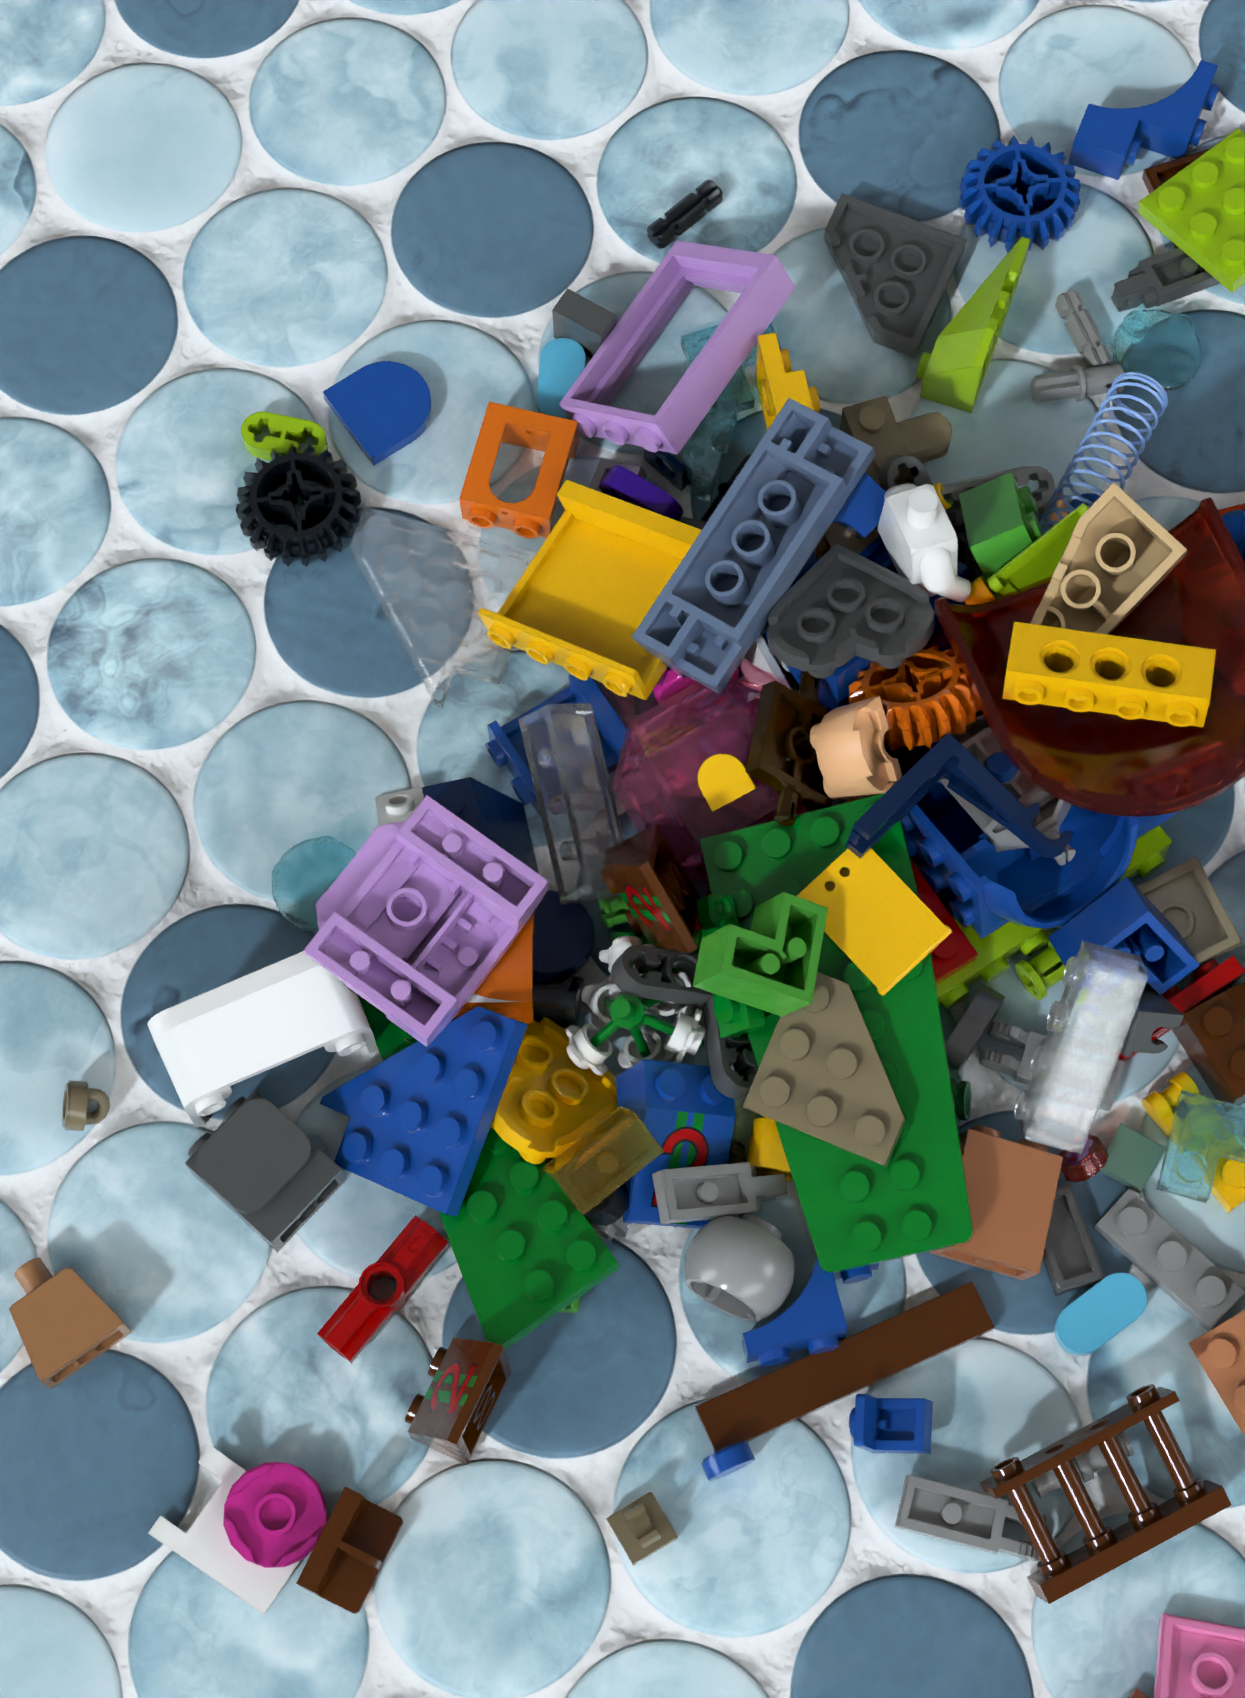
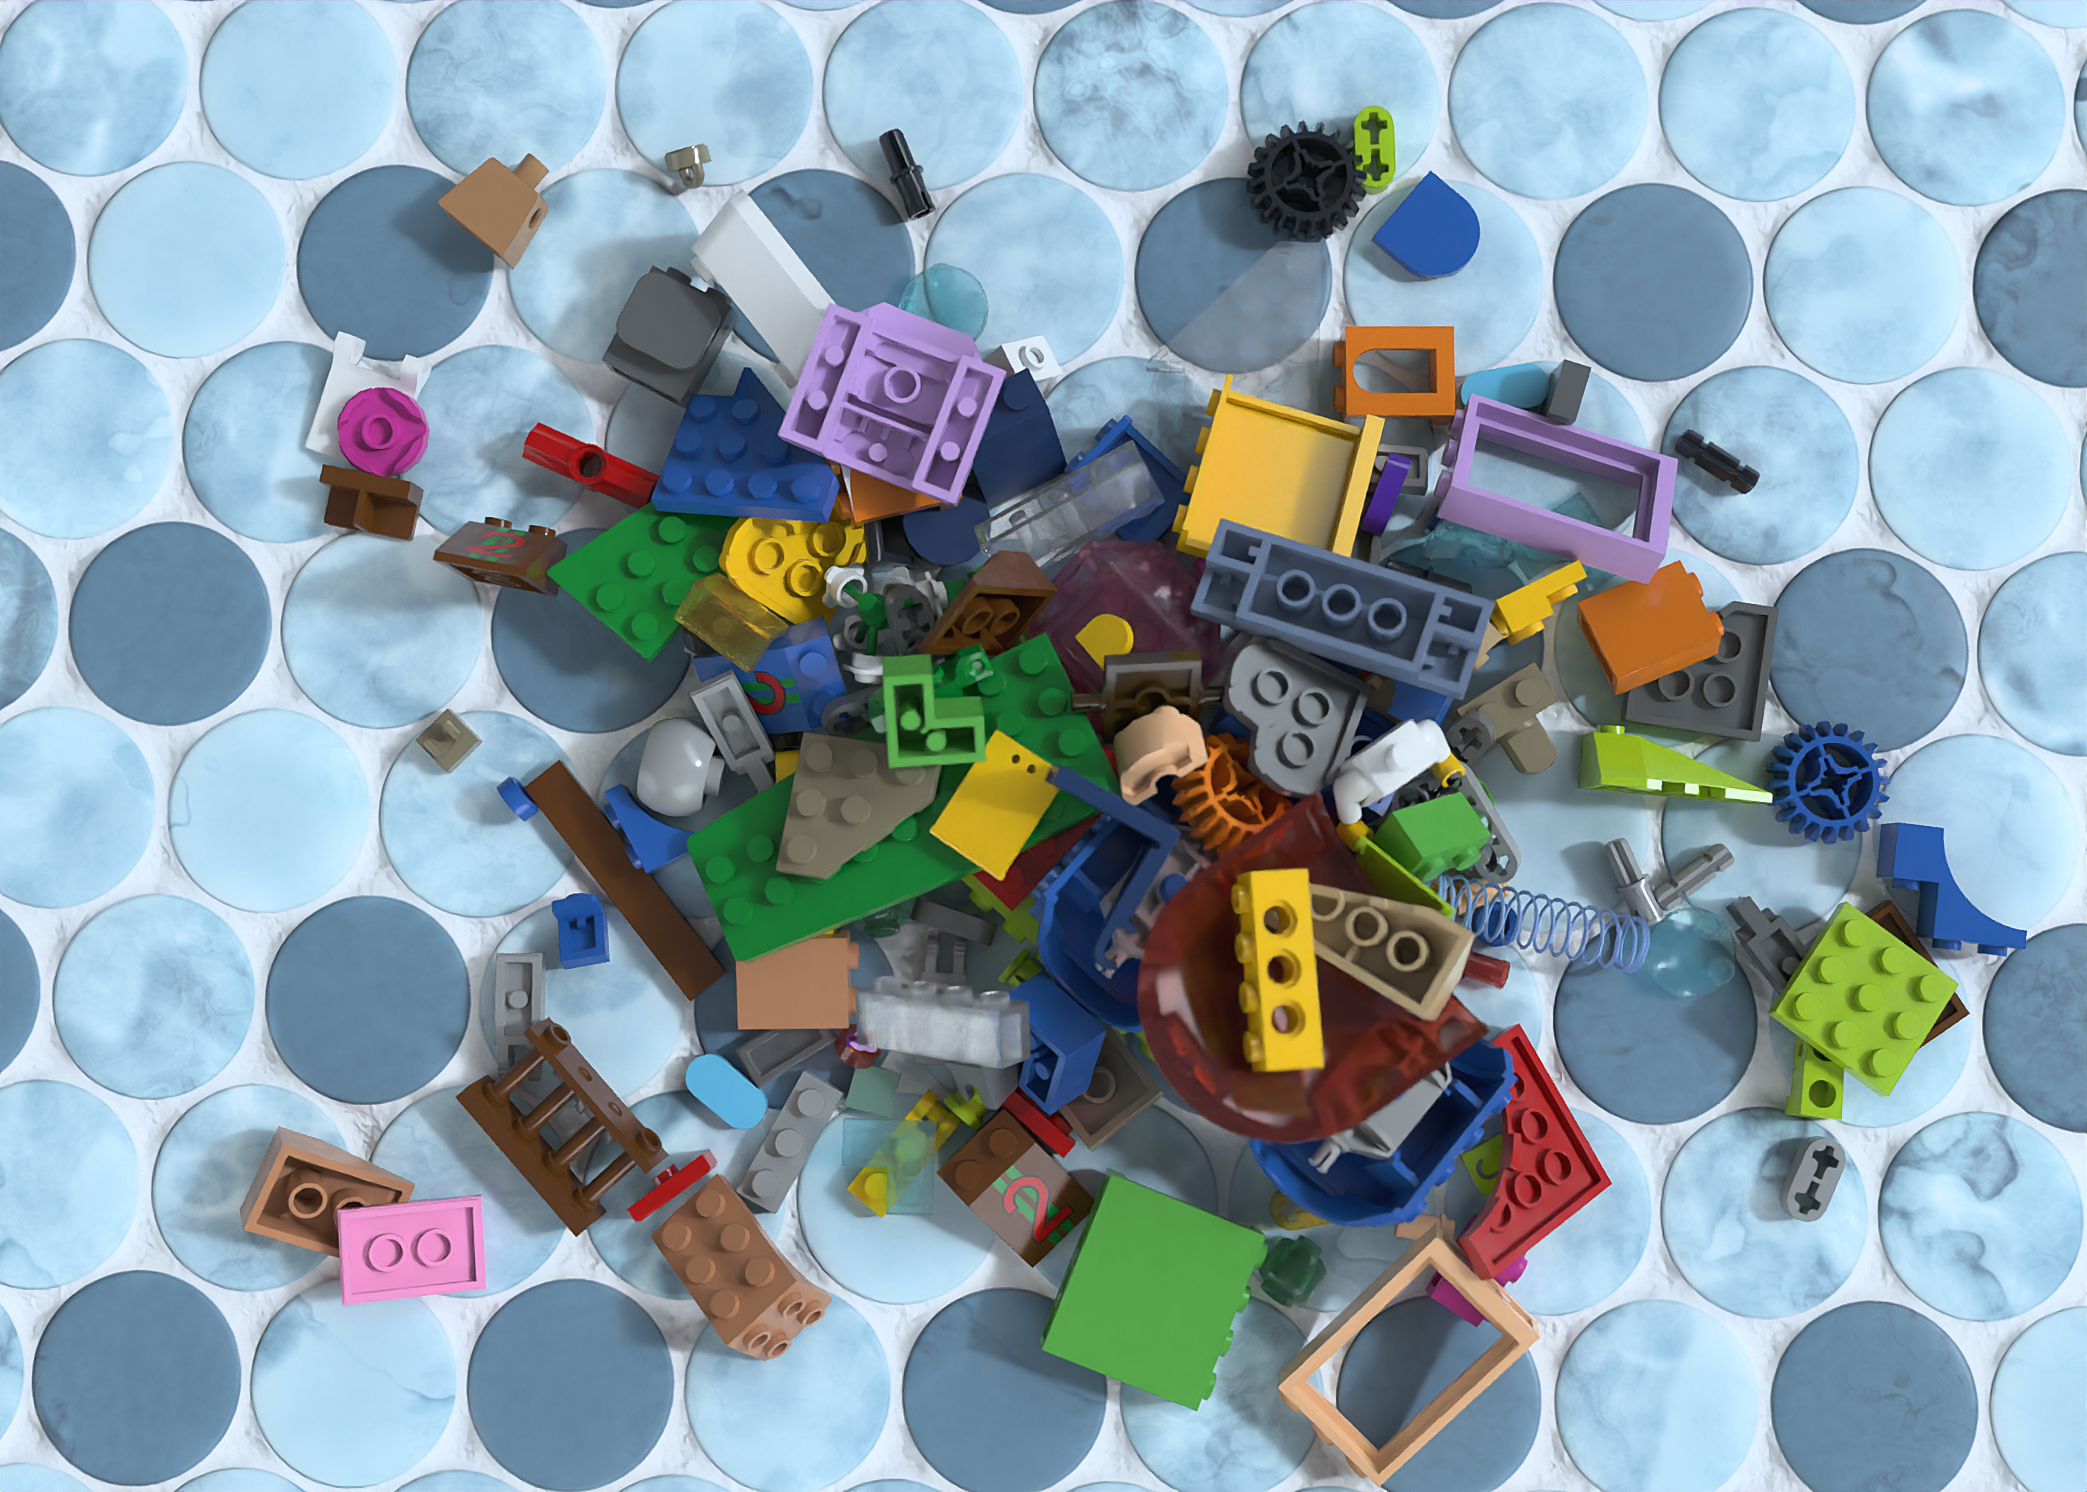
camera: 75 degrees right, 15 degrees up
(165, 887) = (906, 175): none -> black axle
(836, 304) = (1650, 628): none -> orange brick
(1169, 1062) = (969, 1111): none -> lime wheel
(1193, 1392) = (670, 1184): none -> red plate

